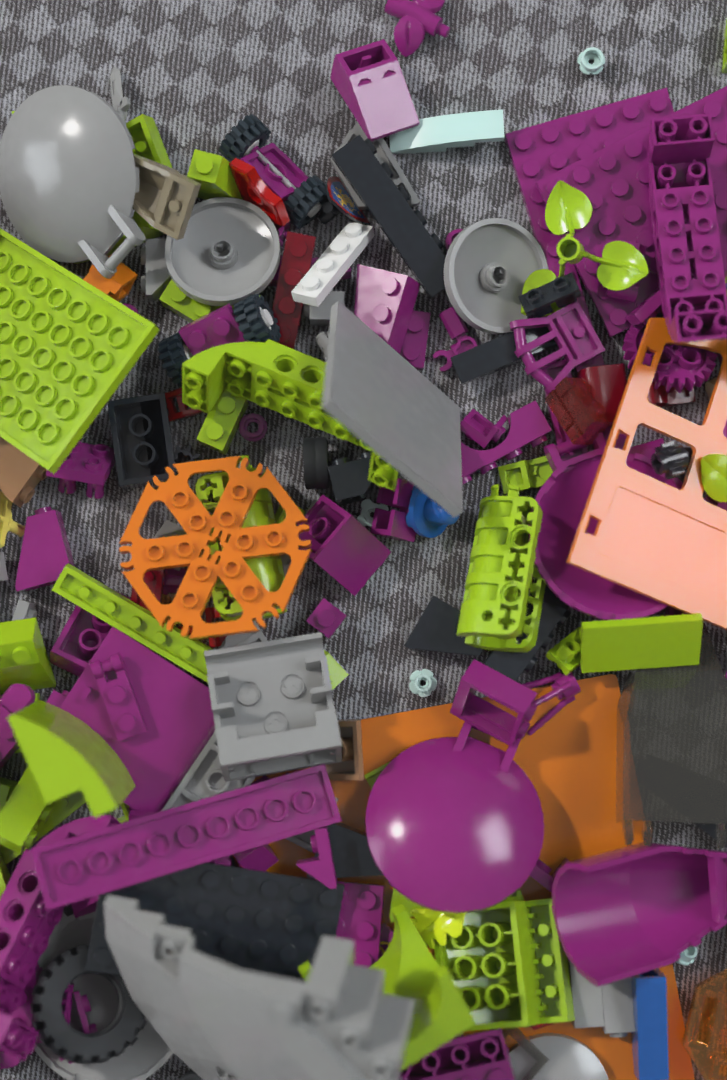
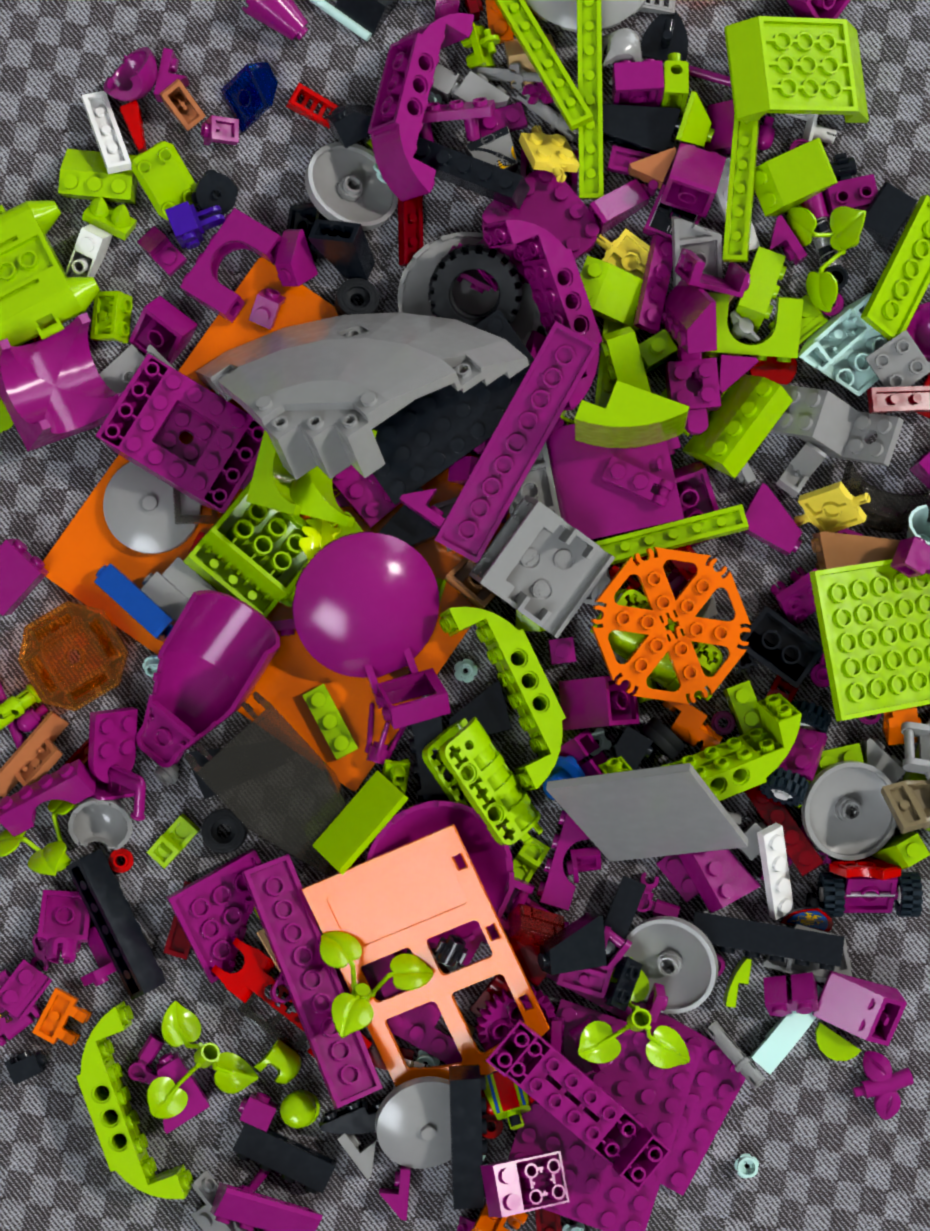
camera: 130 degrees right, 0 degrees up
(132, 386) = (819, 673): none -> magenta plate
(284, 449) = (690, 727): none -> orange plate
(402, 573) = (542, 723): none -> lime slope
(411, 144) = (778, 994): none -> magenta piece
(425, 85) = (834, 1045): none -> lime tile
(446, 212) = (739, 975): none -> lime slope
(514, 150) = (741, 1062): none -> light grey pin
(540, 255) = (655, 1003): none -> magenta bracket
(563, 362) = (575, 947): none -> black slope
(579, 753) = (330, 721): none -> lime plate

